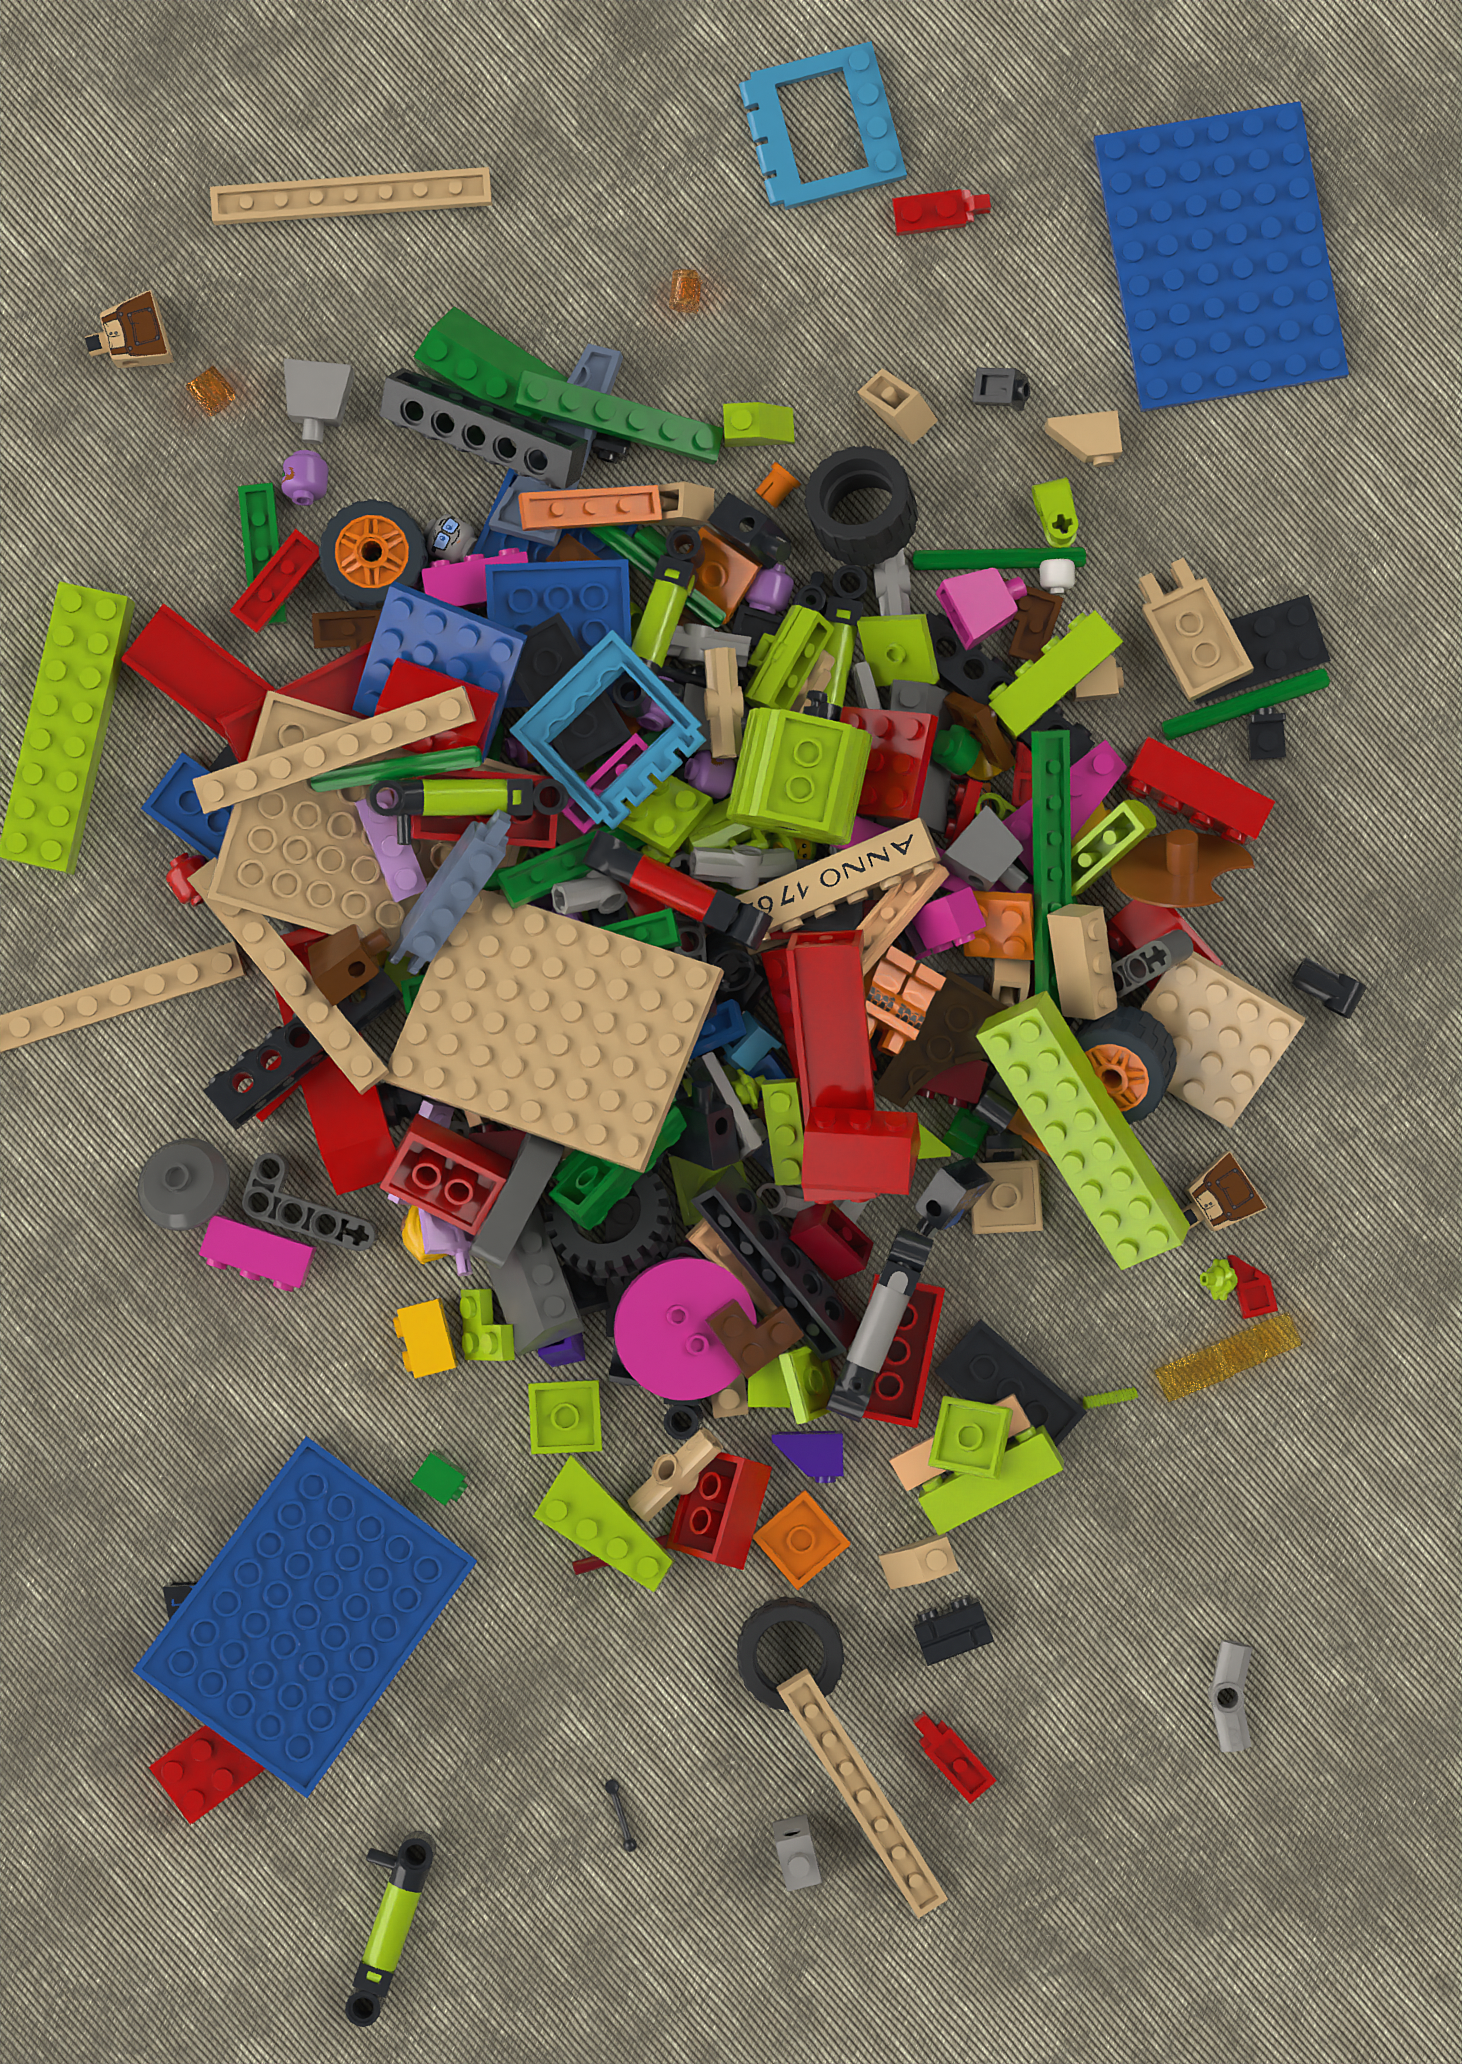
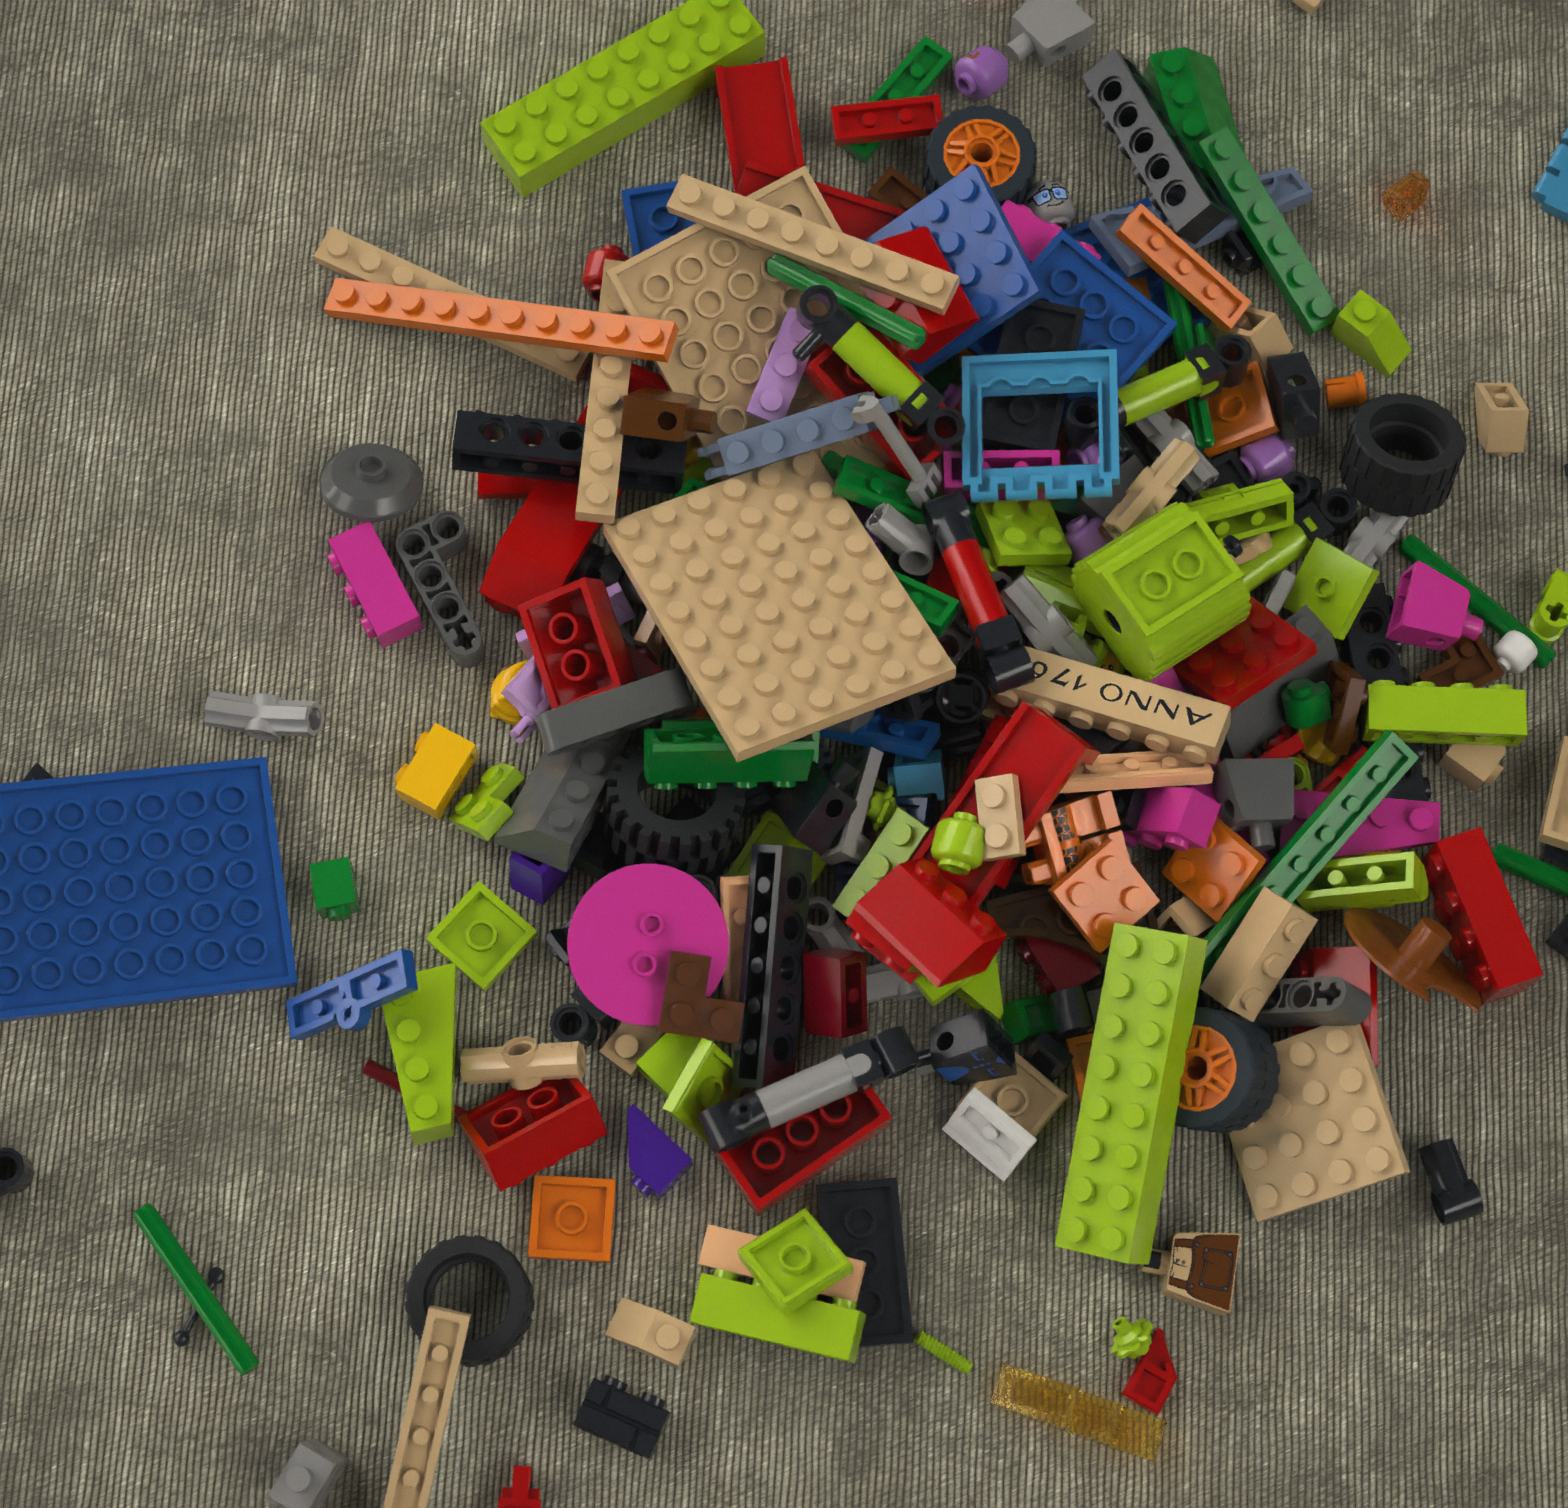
camera: 40 degrees right, 15 degrees down
(161, 992) = (502, 319): none -> orange plate
(276, 1410) = (263, 715): none -> light grey piece
(528, 1541) = (352, 996): none -> blue hinge
(558, 842) = (925, 475): none -> light grey hinge
(609, 1808) = (196, 1289): none -> green axle
(829, 1079) = (959, 843): none -> lime head
(841, 1039) = (1000, 816): none -> tan plate
(948, 1018) = (1102, 892): none -> orange plate
(1013, 1235) = (989, 1134): none -> white plate

